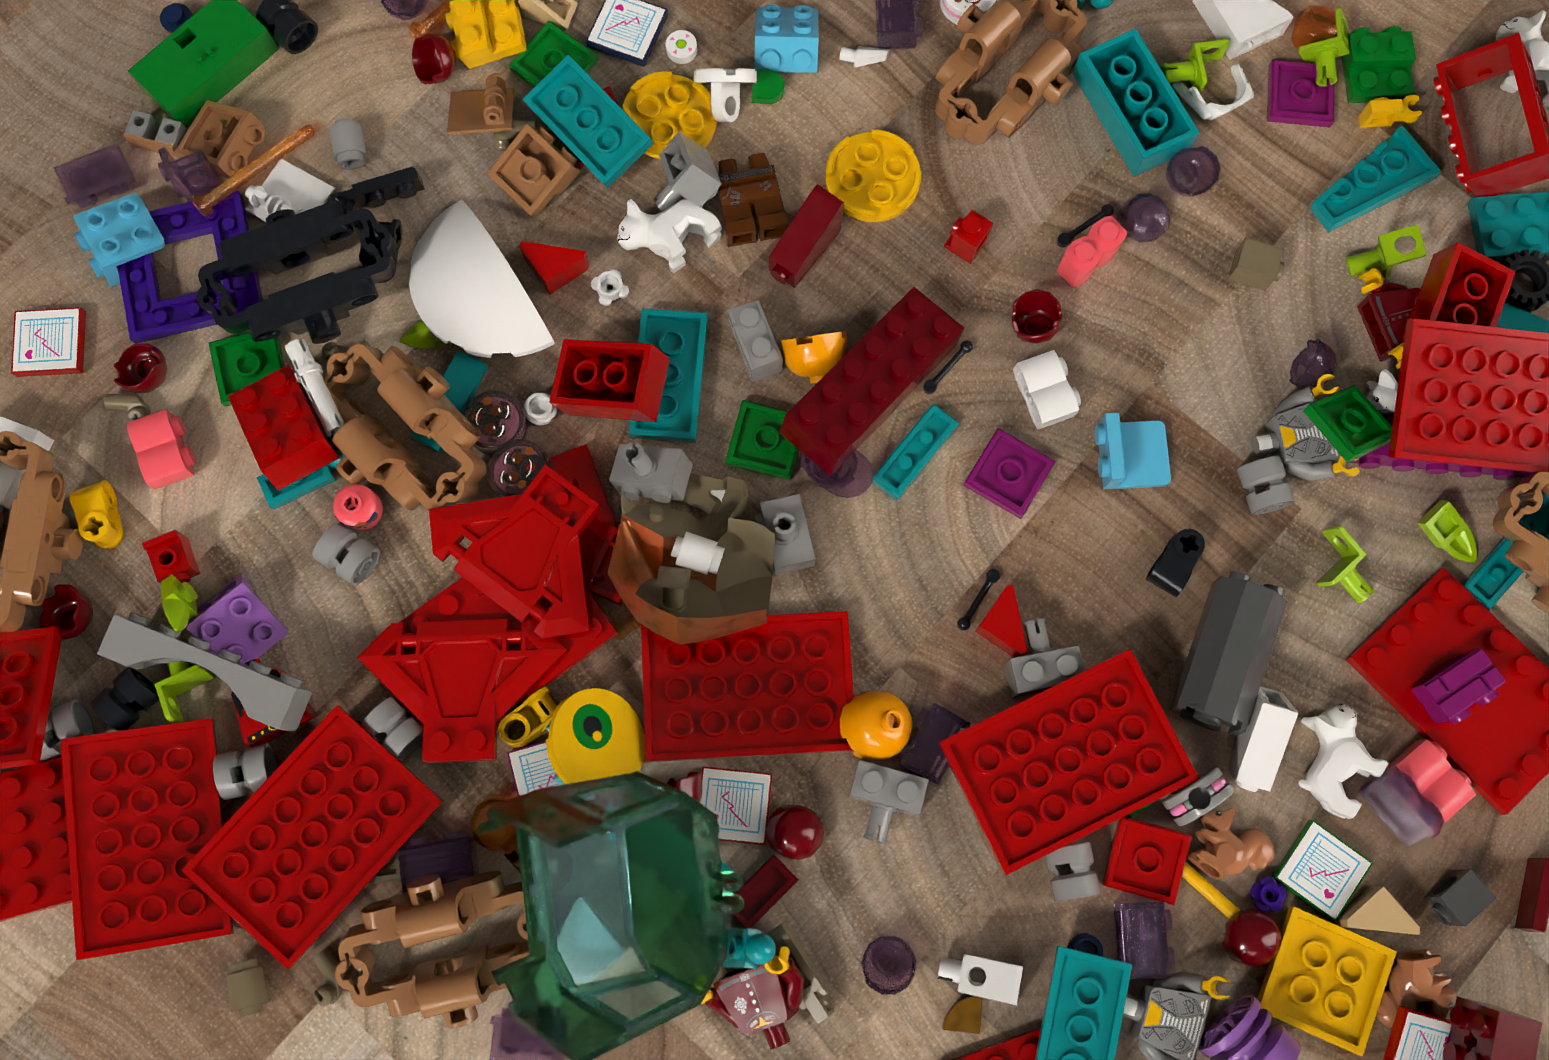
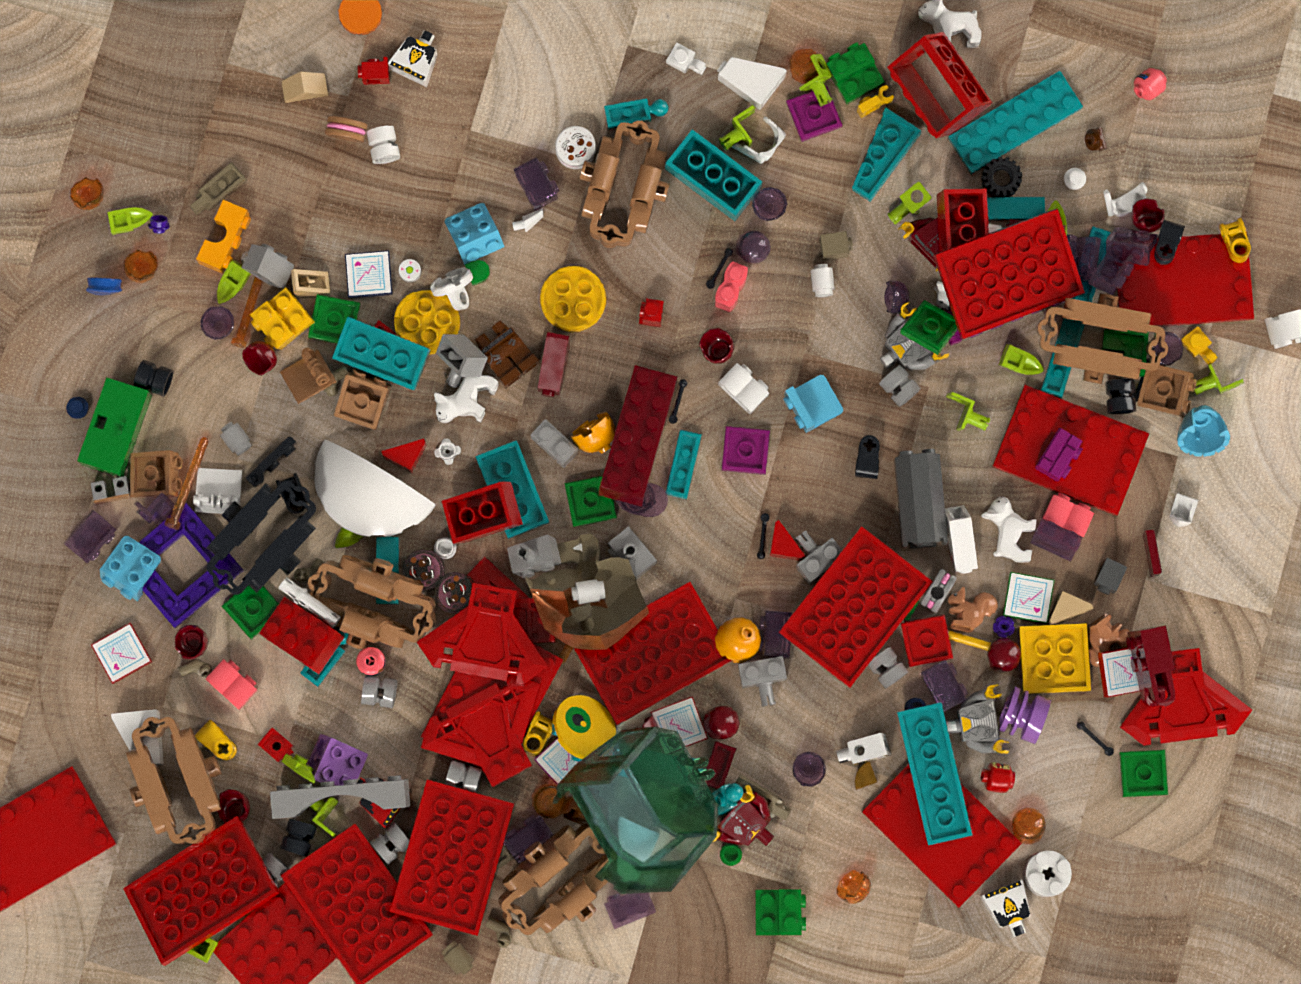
camera: 25 degrees left, 5 degrees up
(714, 1033) = (730, 854): none -> green plate
(1219, 301) = (822, 280): none -> white brick

